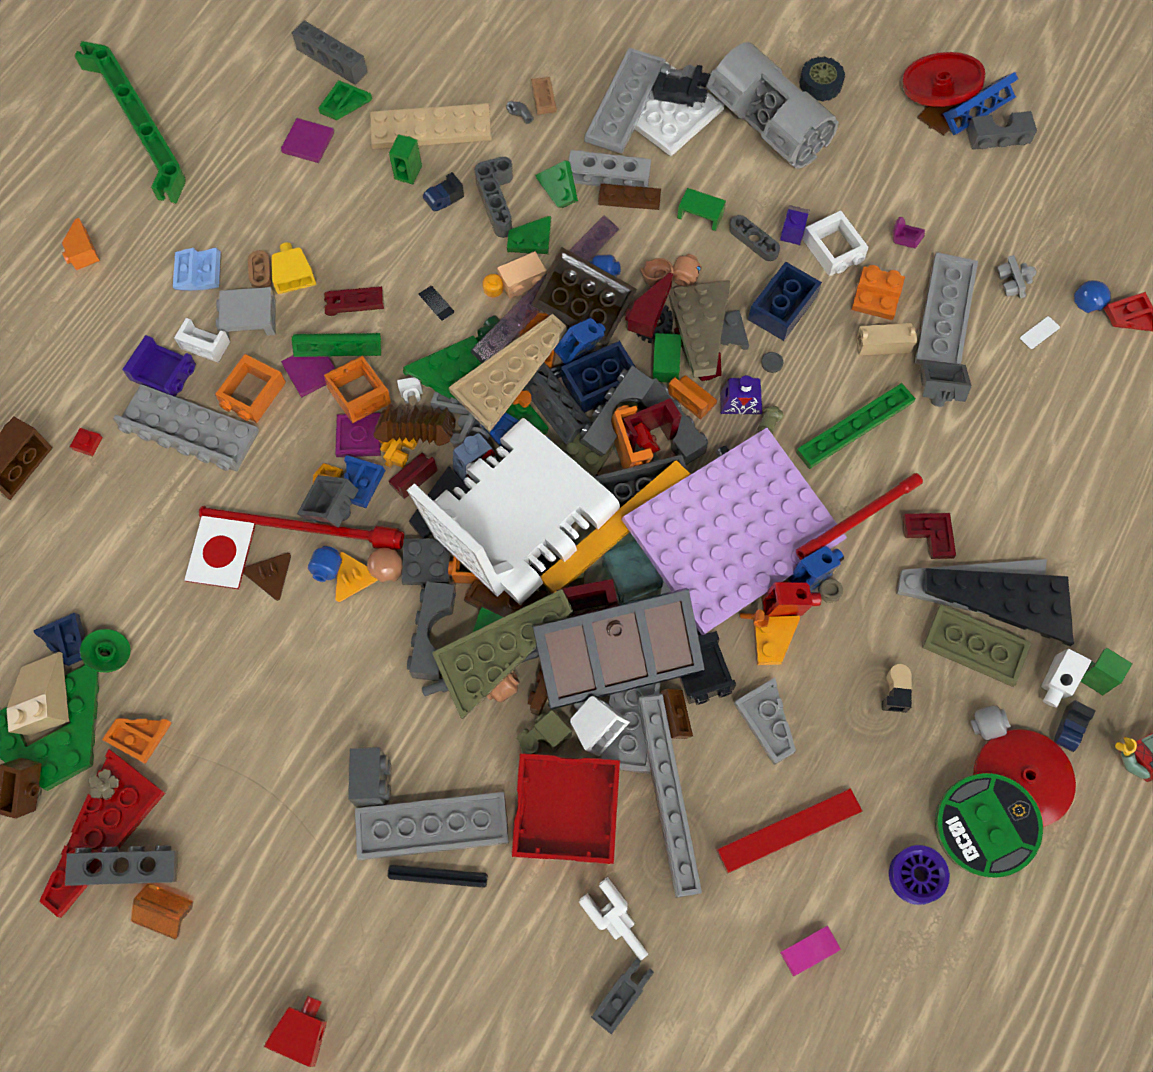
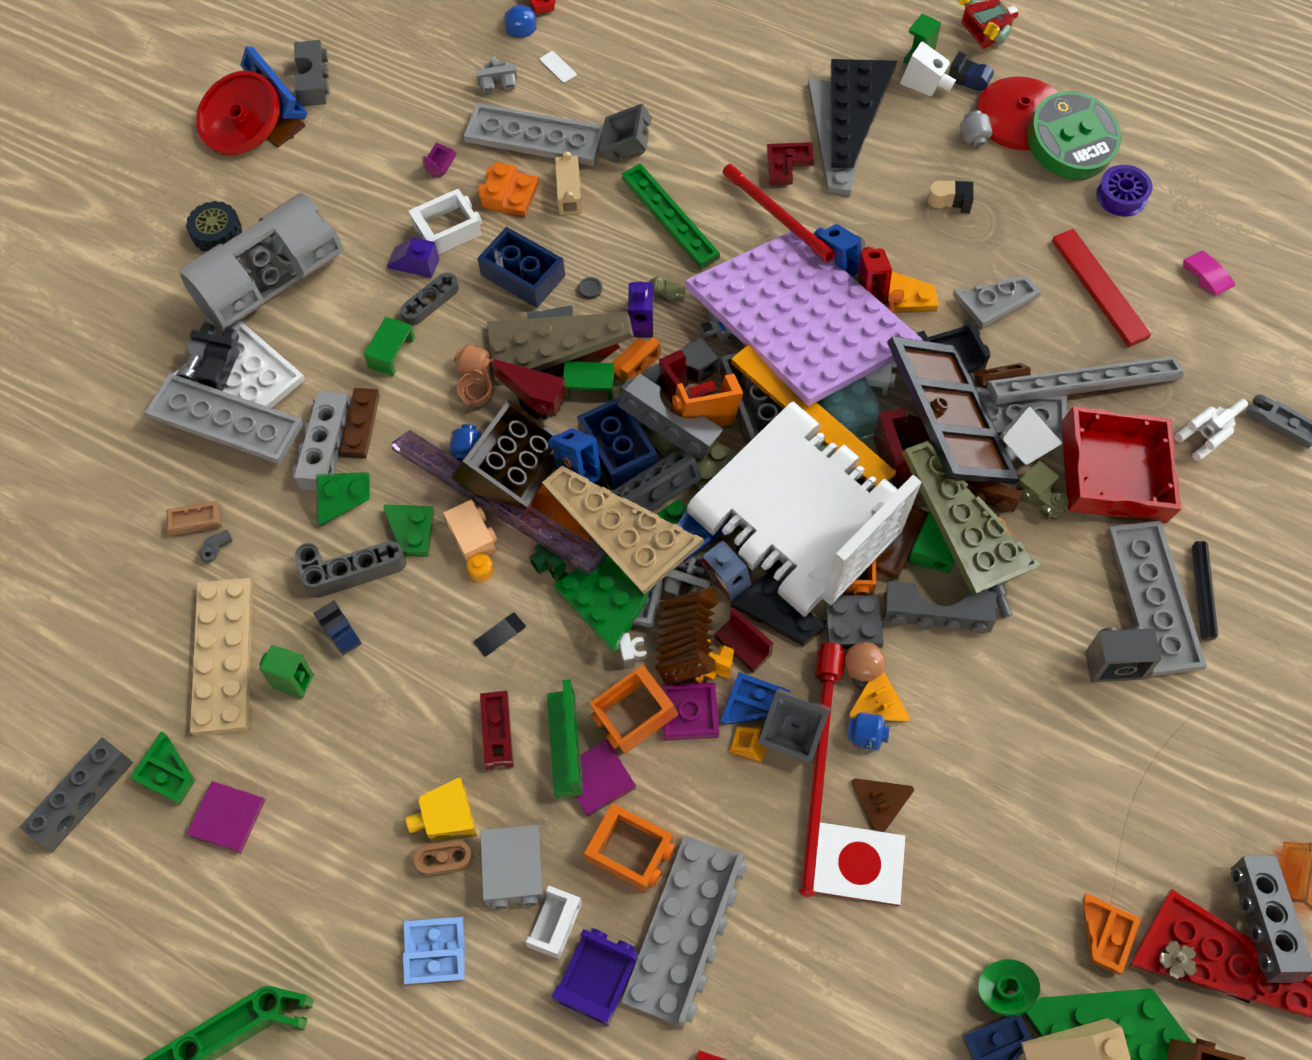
camera: 90 degrees left, 5 degrees down
(977, 645) = (900, 135): olive plate -> none

